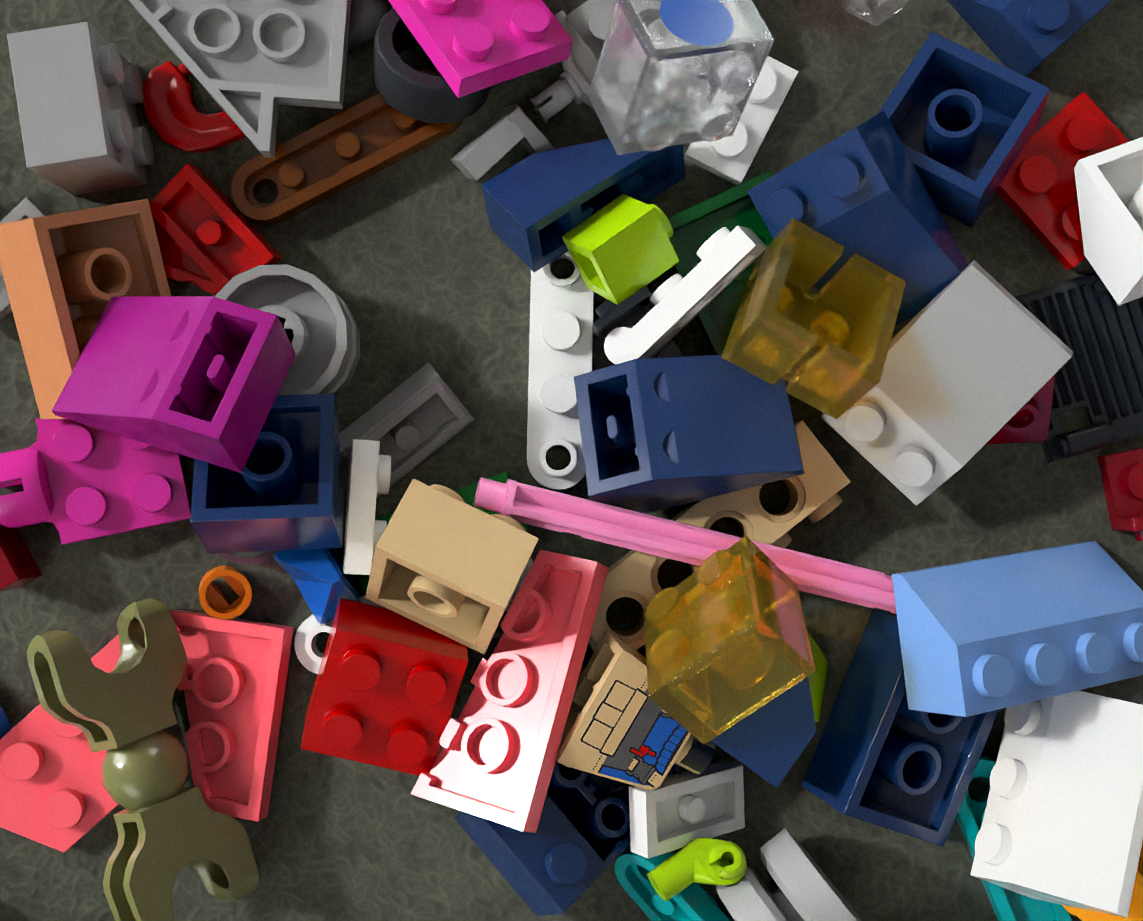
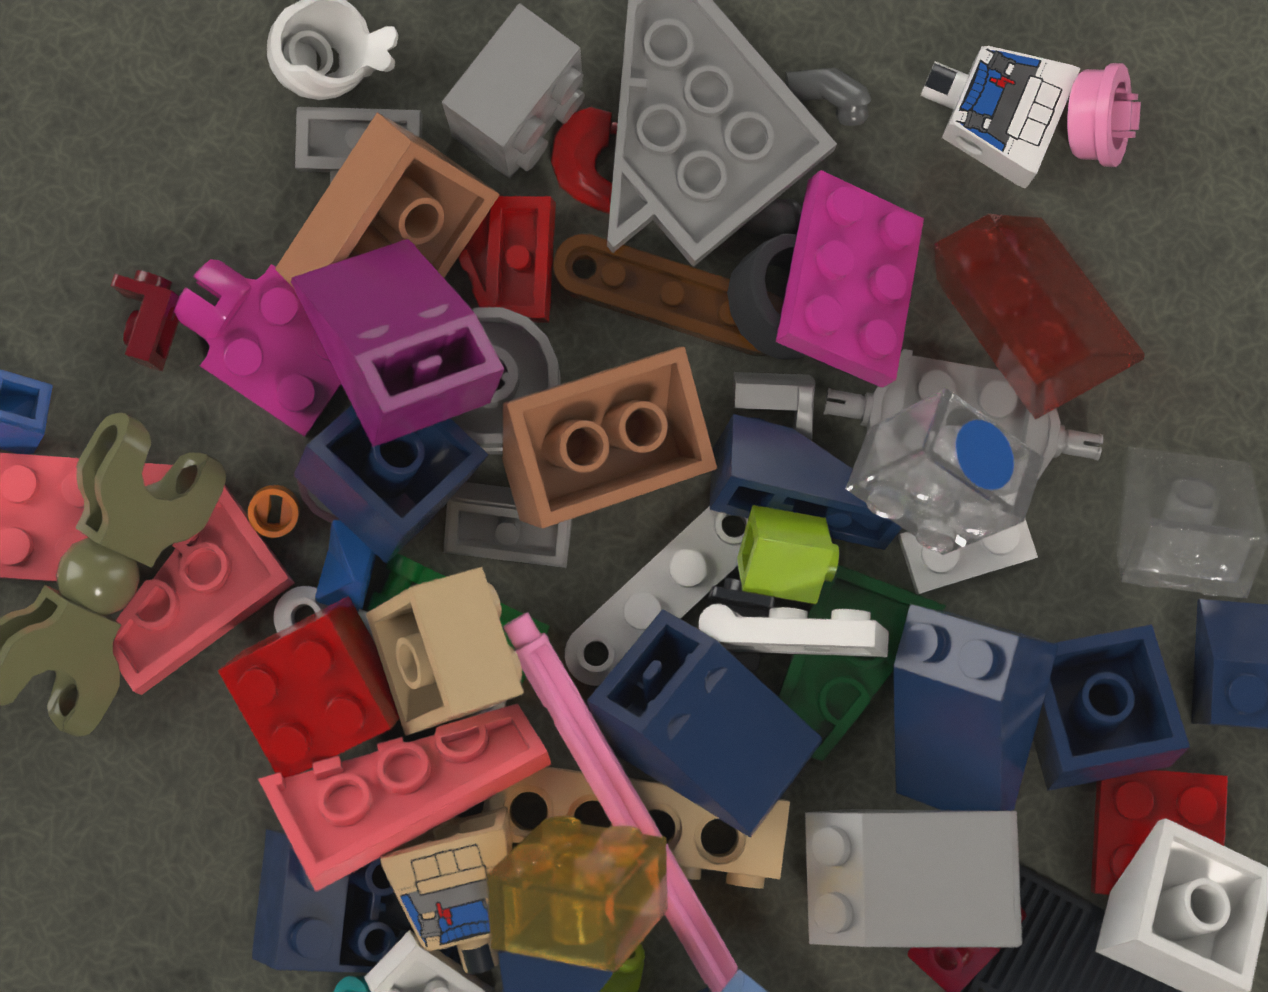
camera: 45 degrees right, 5 degrees down
(367, 477) = (451, 533): white plate -> none
(405, 295) = (604, 439): none -> nougat slope
(824, 343) = (850, 755): clear yellow piece -> none

